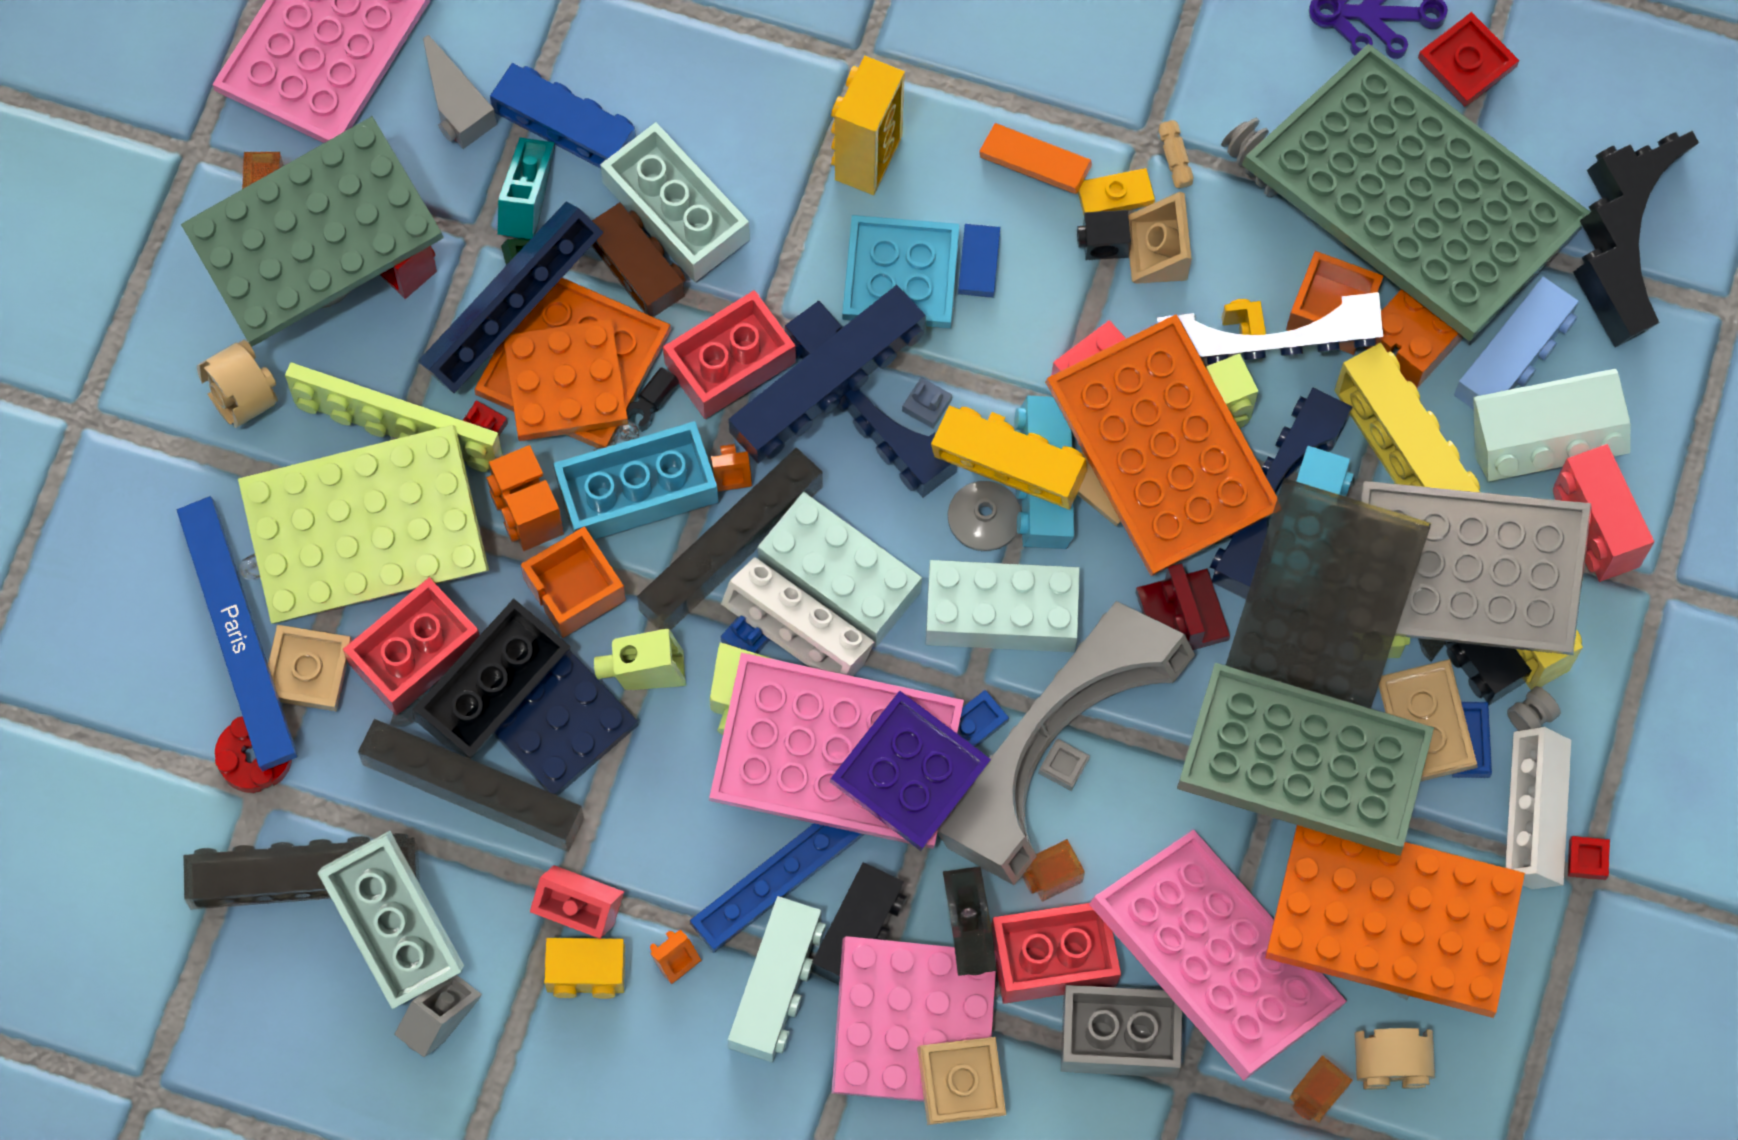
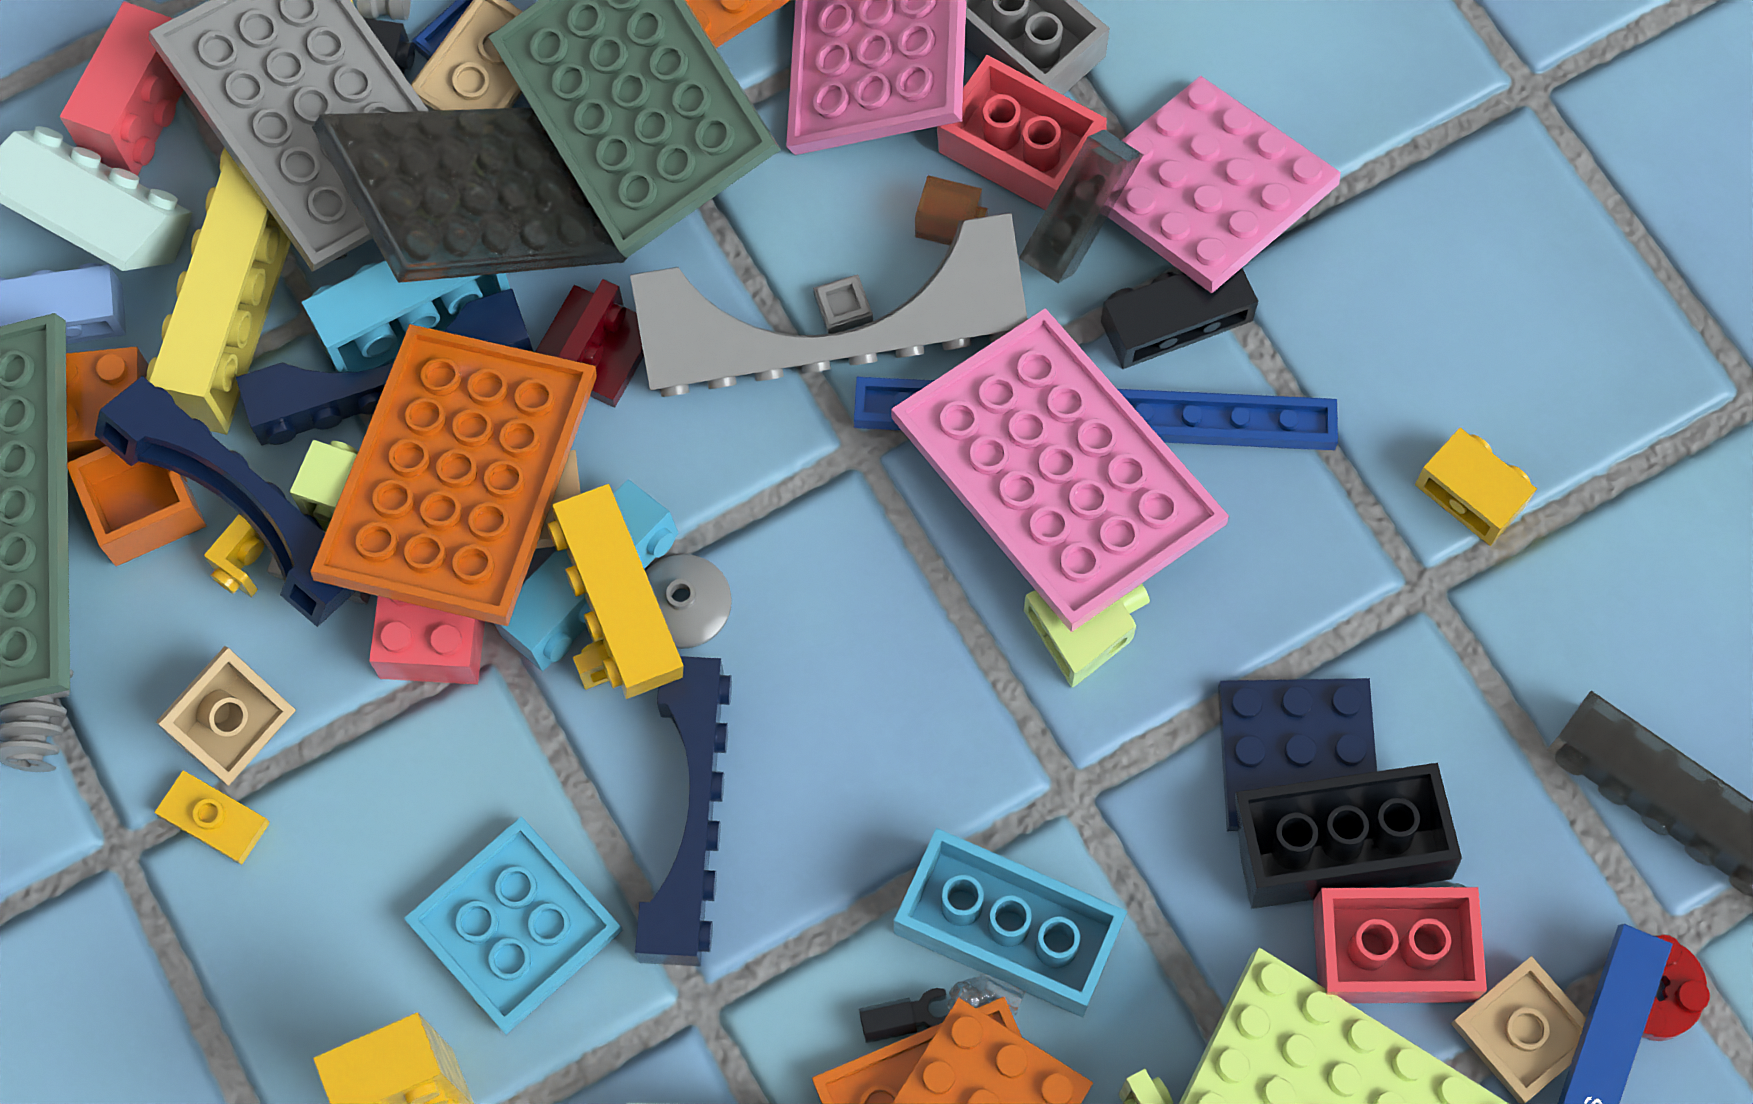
camera: 135 degrees left, 0 degrees up
(391, 919) = (1654, 663): light aqua brick -> none
(436, 1014) = (1660, 558): light grey slope -> none
(471, 785) = (1442, 732): clear smoke brick -> none
(524, 501) = (1144, 1002): orange piece -> none
(573, 582) = (1167, 868): orange piece -> none
(576, 901) = (1437, 543): coral brick -> none
(644, 661) = (1155, 713): yellowish green torso -> none
(675, 956) = (1378, 425): orange tile -> none
(728, 542) = (965, 778): clear smoke brick -> none
(729, 354) = (782, 980): coral brick -> none
(731, 469) = (892, 858): orange tile -> none
(744, 636) = (1032, 678): blue tile -> none
(775, 980) = (1300, 326): light aqua brick -> none
(796, 620) = (974, 636): white brick -> none
(827, 375) = (708, 845): dark blue brick -> none
(840, 568) = (883, 656): light aqua brick -> none
(910, 770) = (1010, 377): dark purple plate -> none
(927, 403) = (625, 762): sand blue tile -> none
(961, 1080) = (1214, 90): tan plate -> none
(979, 260) = (421, 868): blue tile -> none
(1002, 606) = (759, 484): light aqua brick -> none
(1035, 158) = (251, 925): orange tile -> none
(1105, 235) = (272, 773): black brick -> none
(1176, 154) = (108, 803): tan axle -> none

